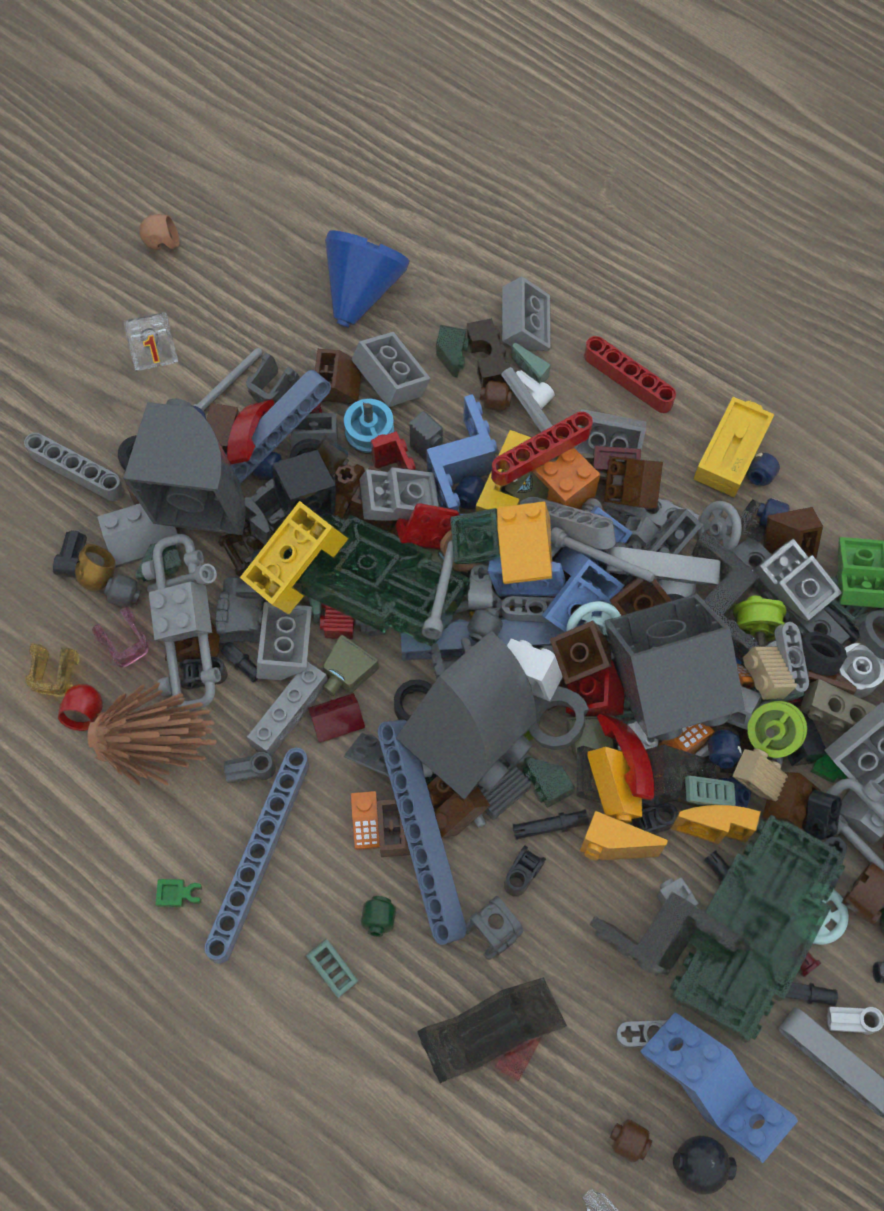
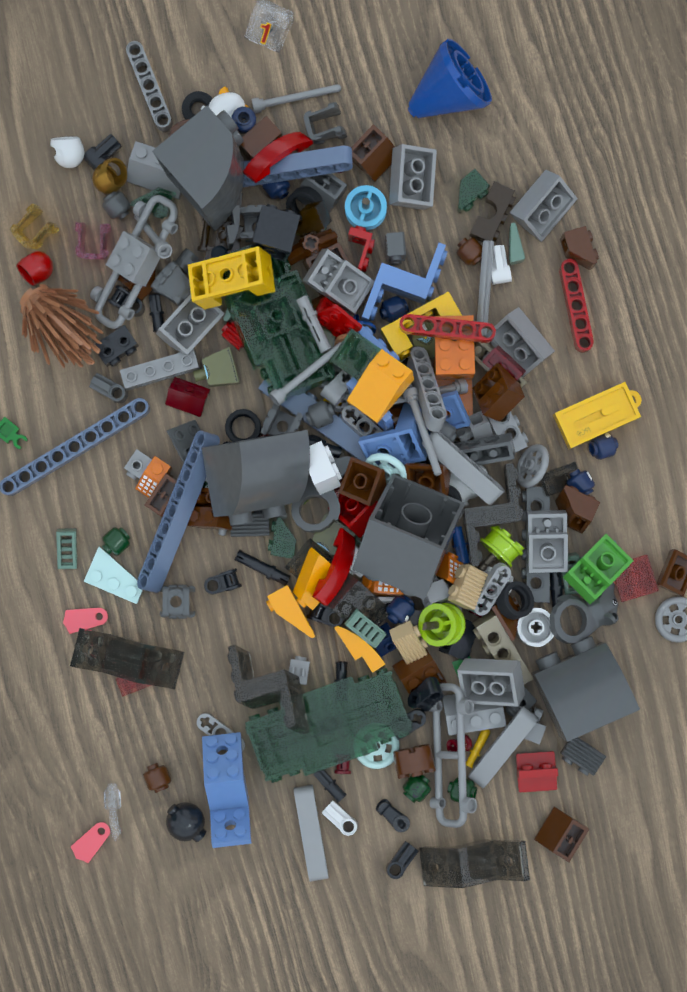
camera: 45 degrees right, 20 degrees up
(35, 573) = (68, 151): none -> white helmet
(227, 714) = (116, 346): none -> black brick
(339, 820) = (137, 464): none -> light grey brick
(384, 532) = (314, 324): none -> light grey pin
(403, 1035) = (83, 619): none -> coral piece
(405, 959) = (112, 577): none -> light aqua wing
(590, 319) = (578, 246): none -> reddish brown slope

